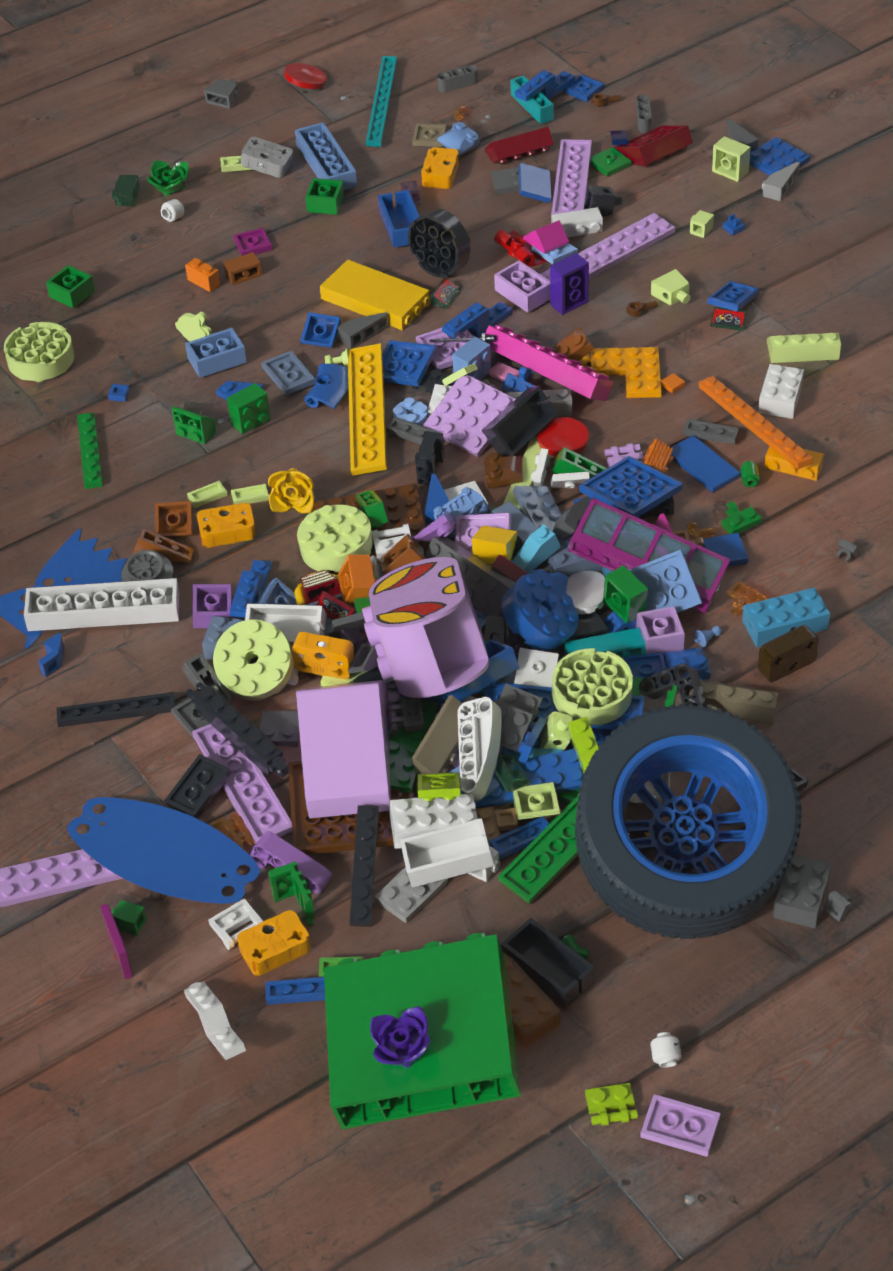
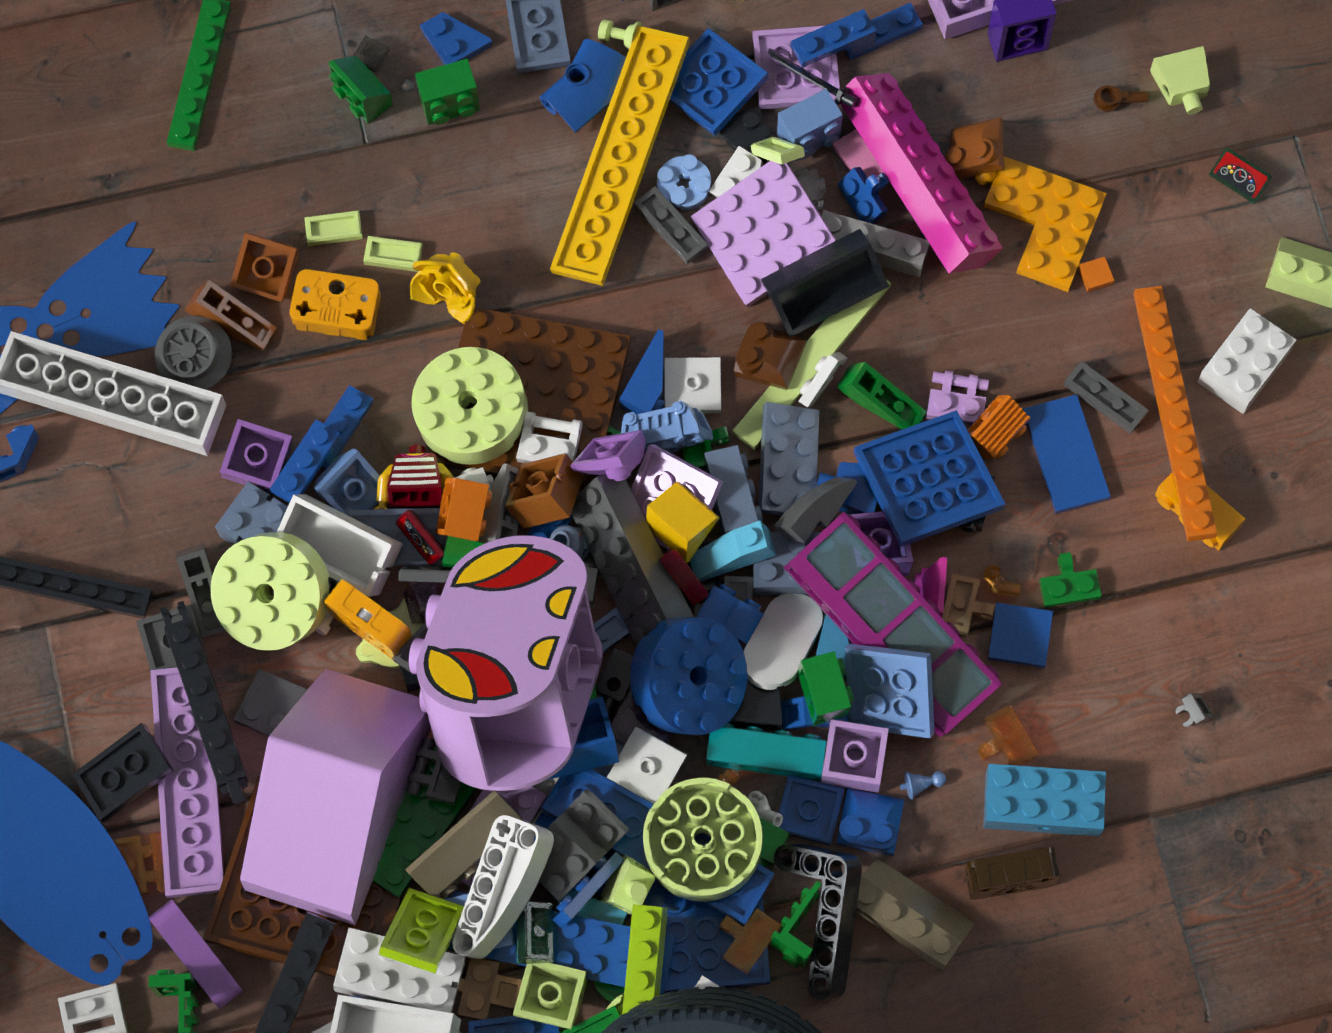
camera: 20 degrees right, 25 degrees up
(372, 507) = (543, 366): green slope -> none
(430, 453) = (666, 293): black hips -> none
(563, 433) = (883, 327): red piece -> none
(569, 480) = (851, 420): white plate -> none
(733, 296) = (1268, 133): blue tile -> none
(750, 474) = (1122, 507): green brick -> none

